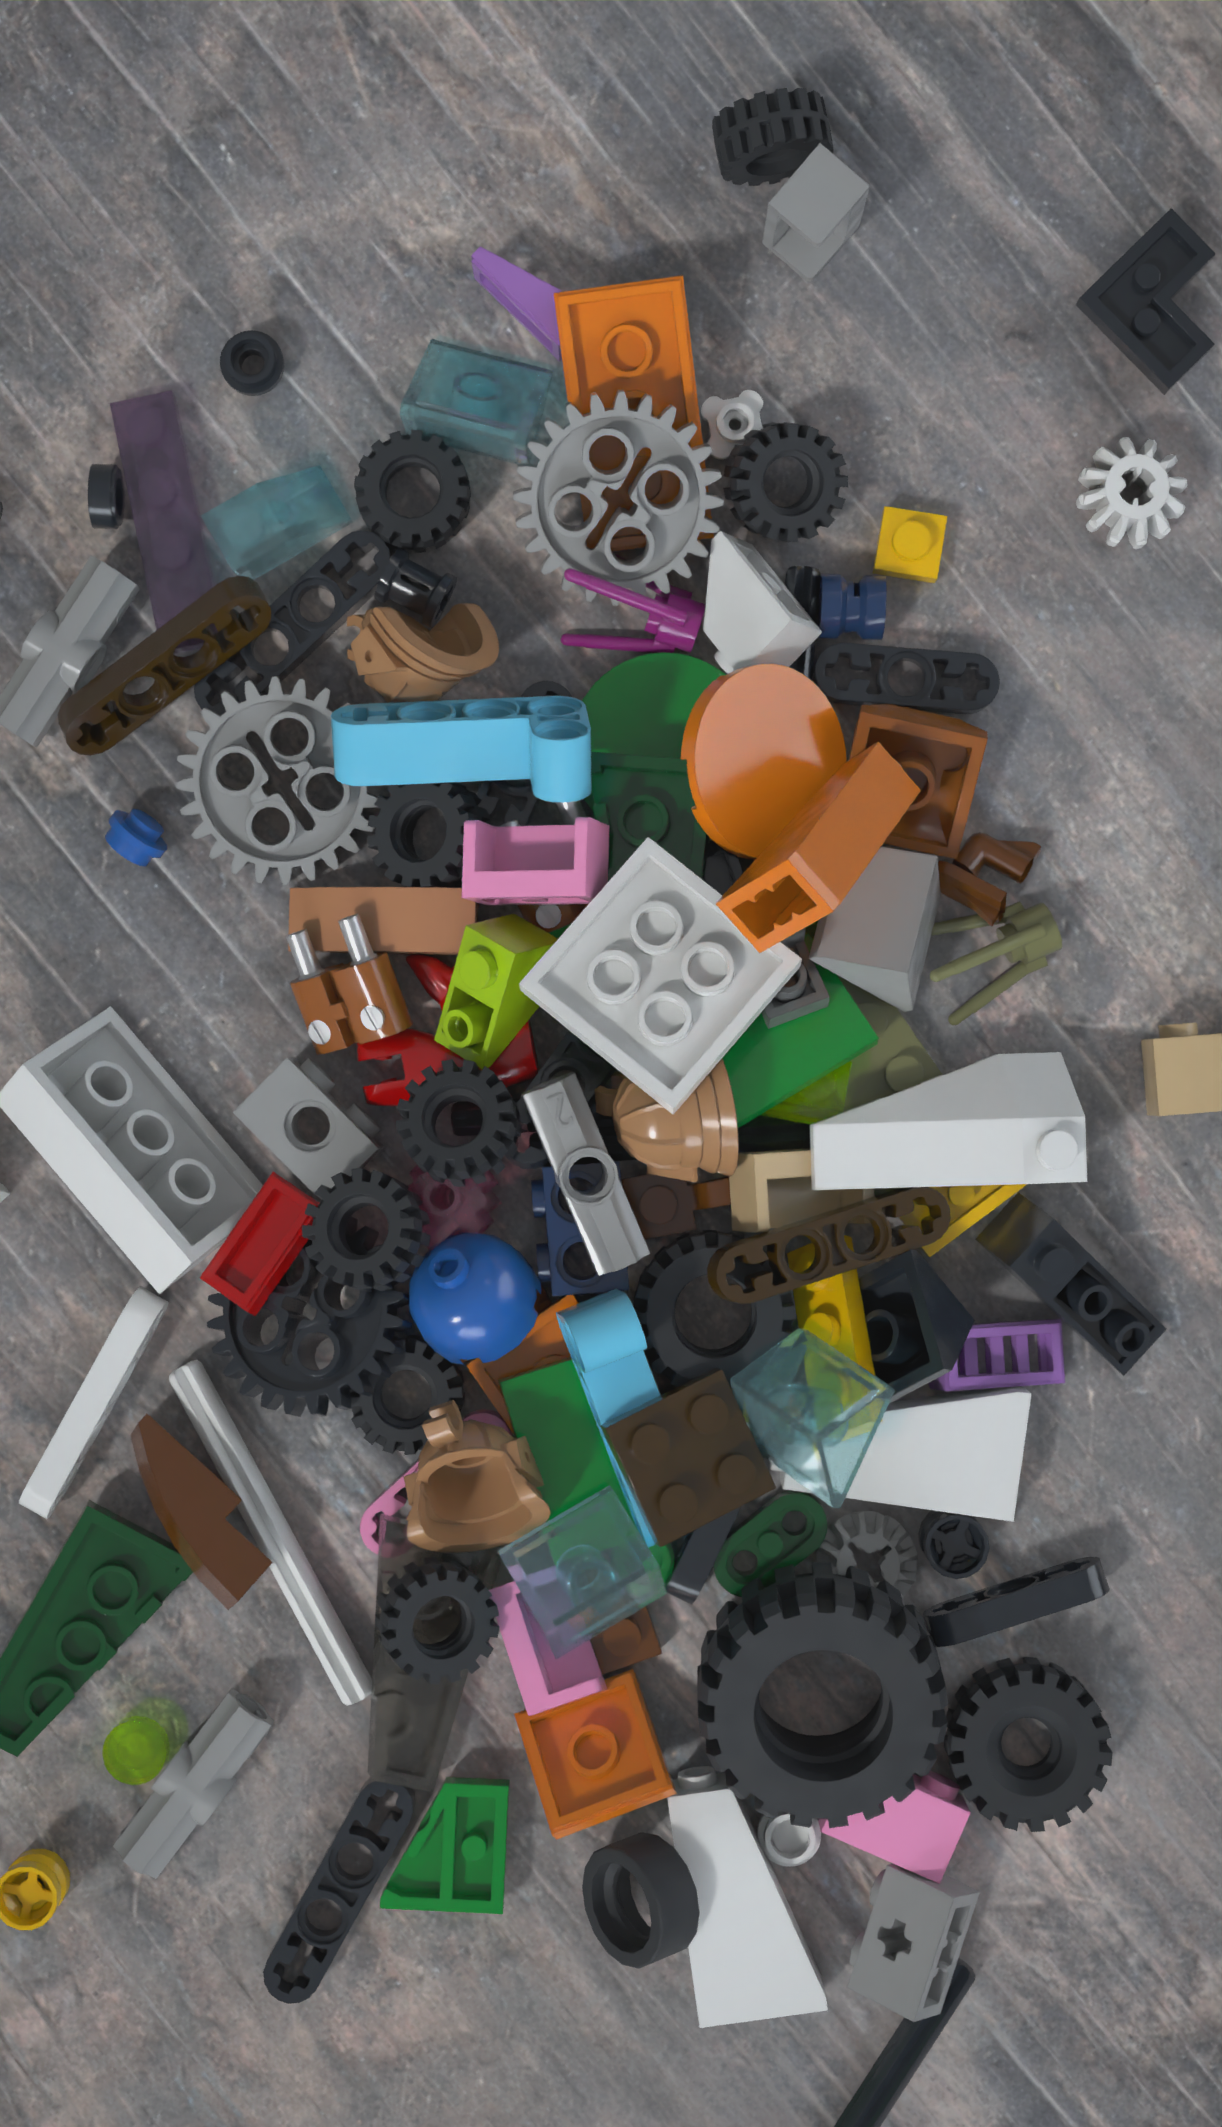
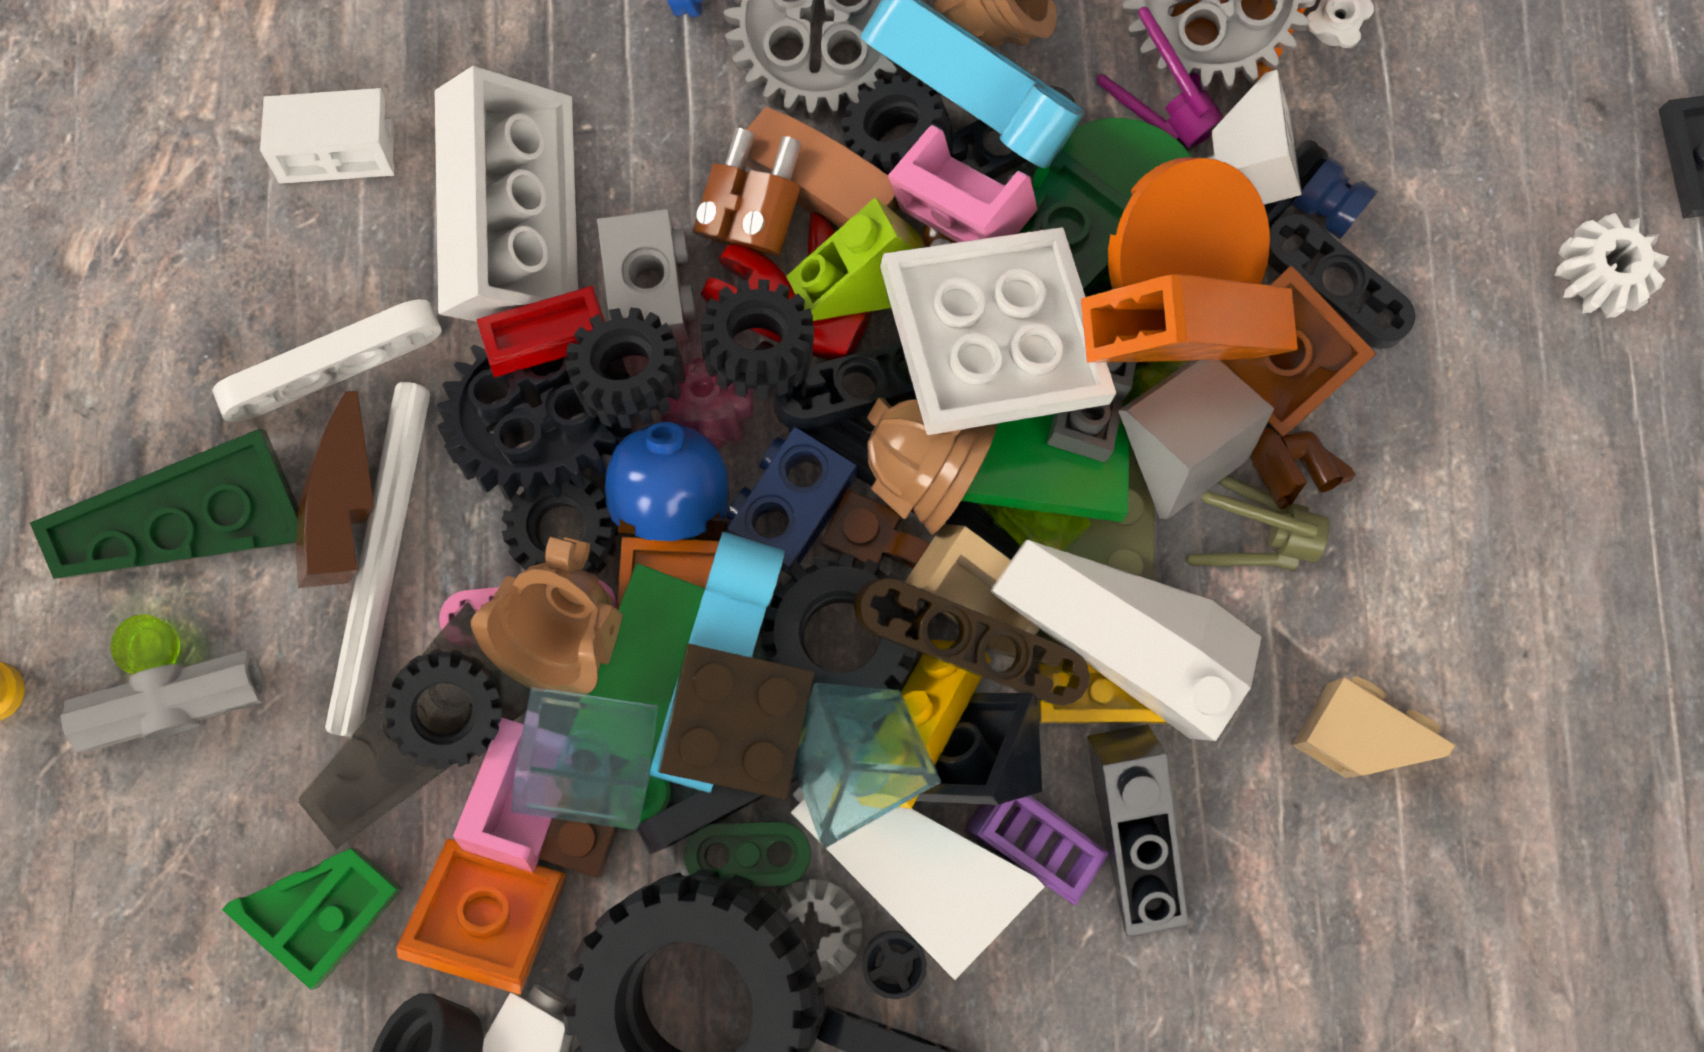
camera: 40 degrees right, 10 degrees down
(339, 1886) = (208, 874): black beam -> none
(600, 1212) = (834, 407): light grey piece -> none
(822, 487) = (1385, 66): black tyre -> none
(909, 544) = (1410, 189): yellow plate -> none

